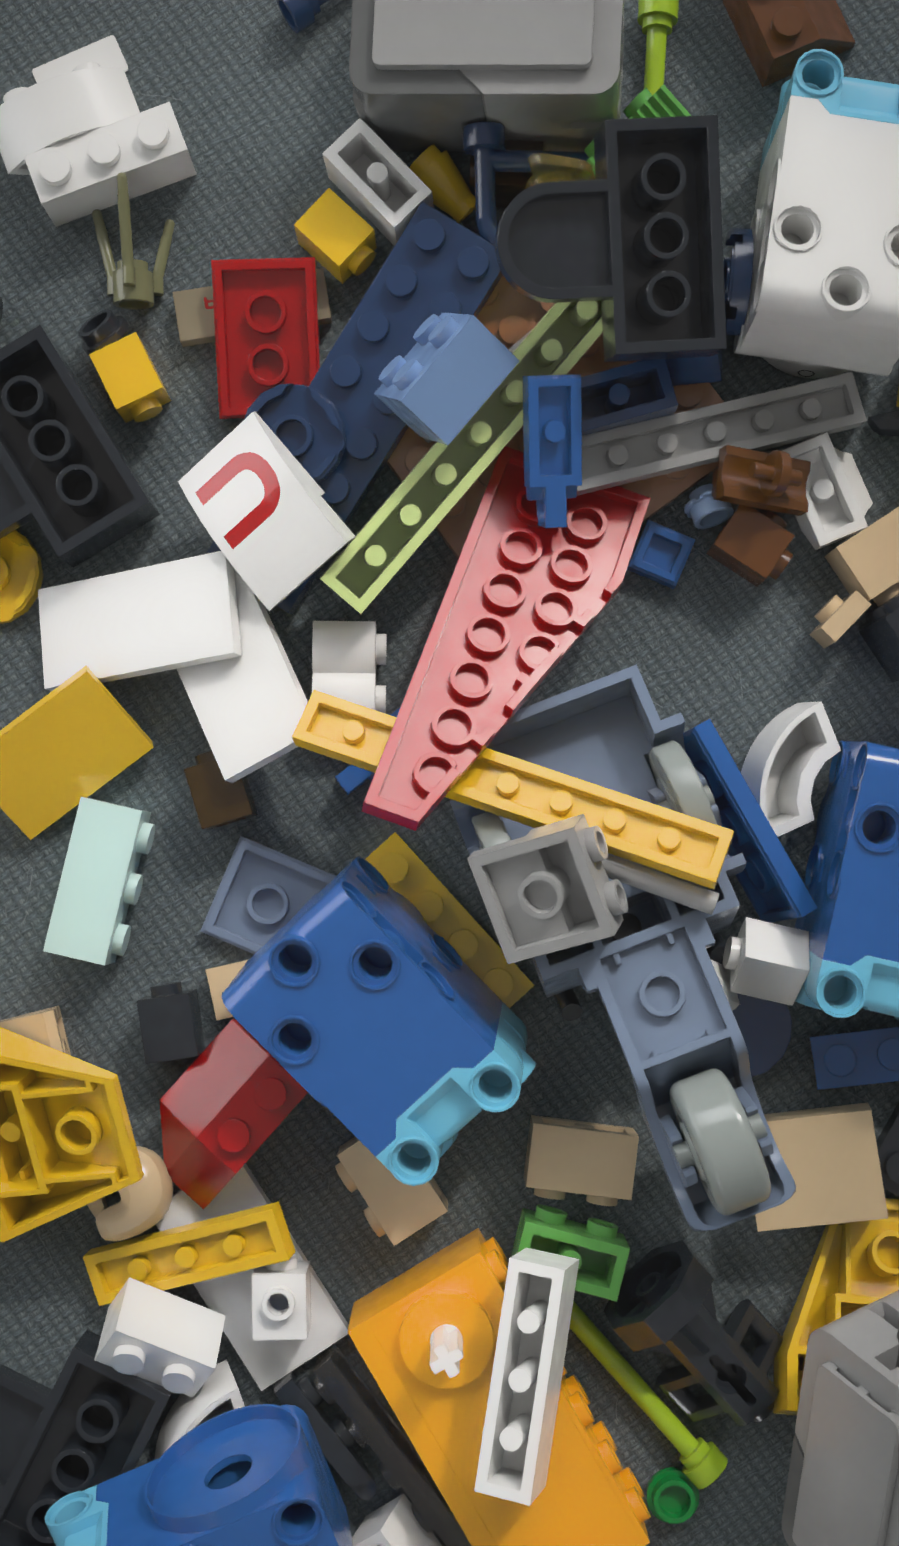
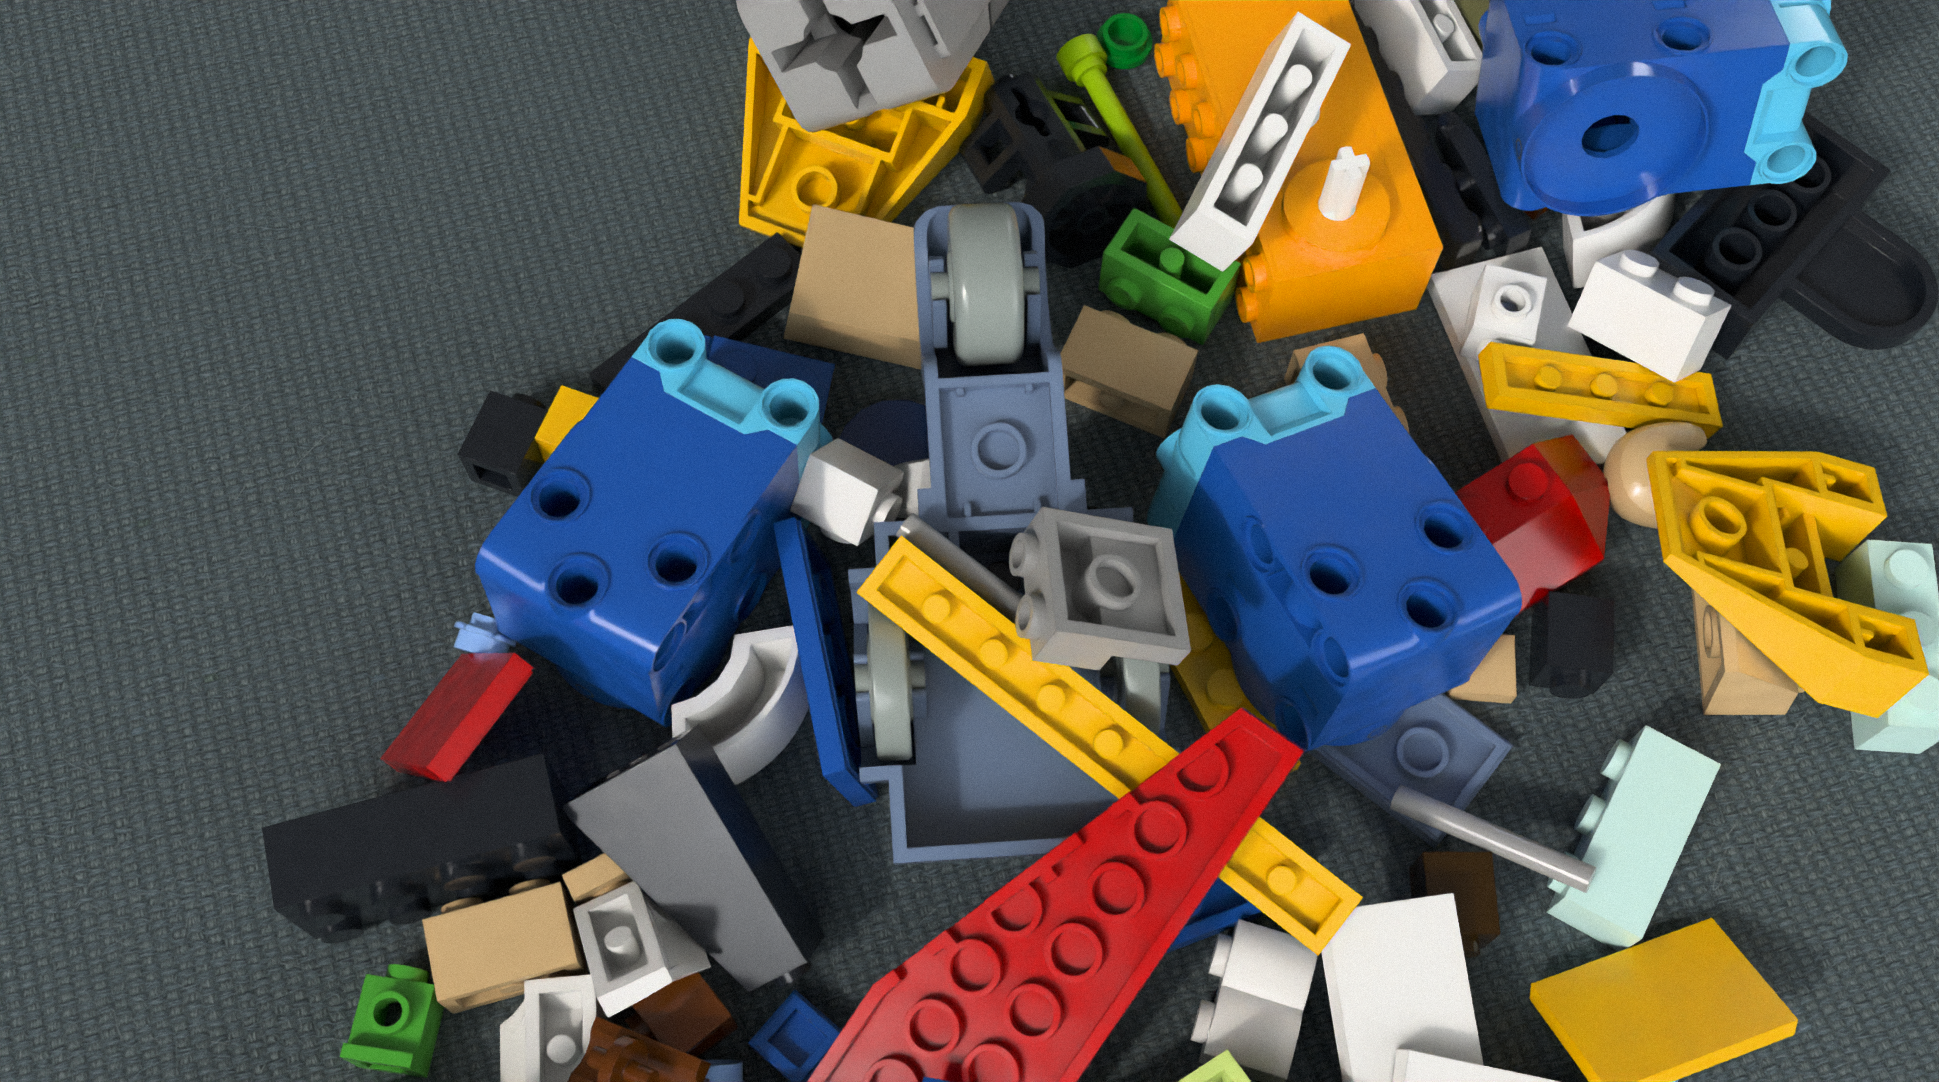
camera: 165 degrees left, 20 degrees down
(203, 841) = (1493, 838): none -> light grey bar
(778, 645) = (702, 858): none -> slope
(798, 567) = (633, 947): none -> white slope

